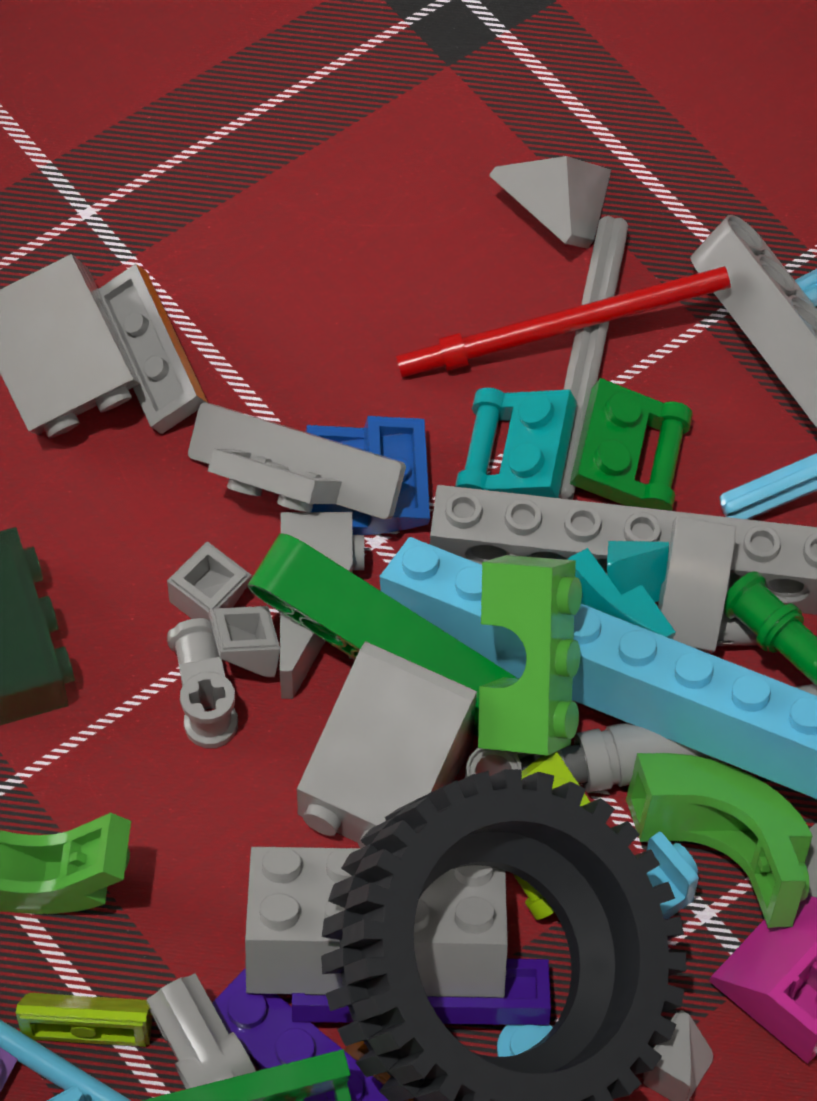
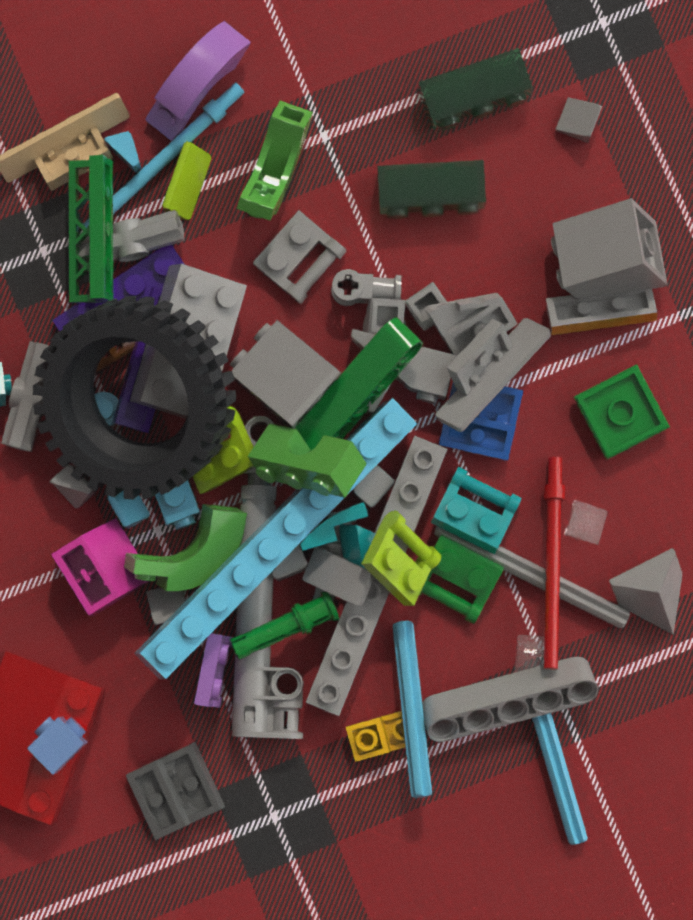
camera: 110 degrees right, 25 degrees up
(168, 822) = (289, 251): none -> light grey plate
(218, 519) = (463, 318): none -> light grey wing
(301, 292) = (621, 412): none -> green plate
(483, 306) = (585, 522): none -> clear slope
(645, 494) = (393, 566): none -> lime plate
(702, 958) = (129, 511): none -> medium azure slope
(708, 331) = (529, 652): none -> clear slope

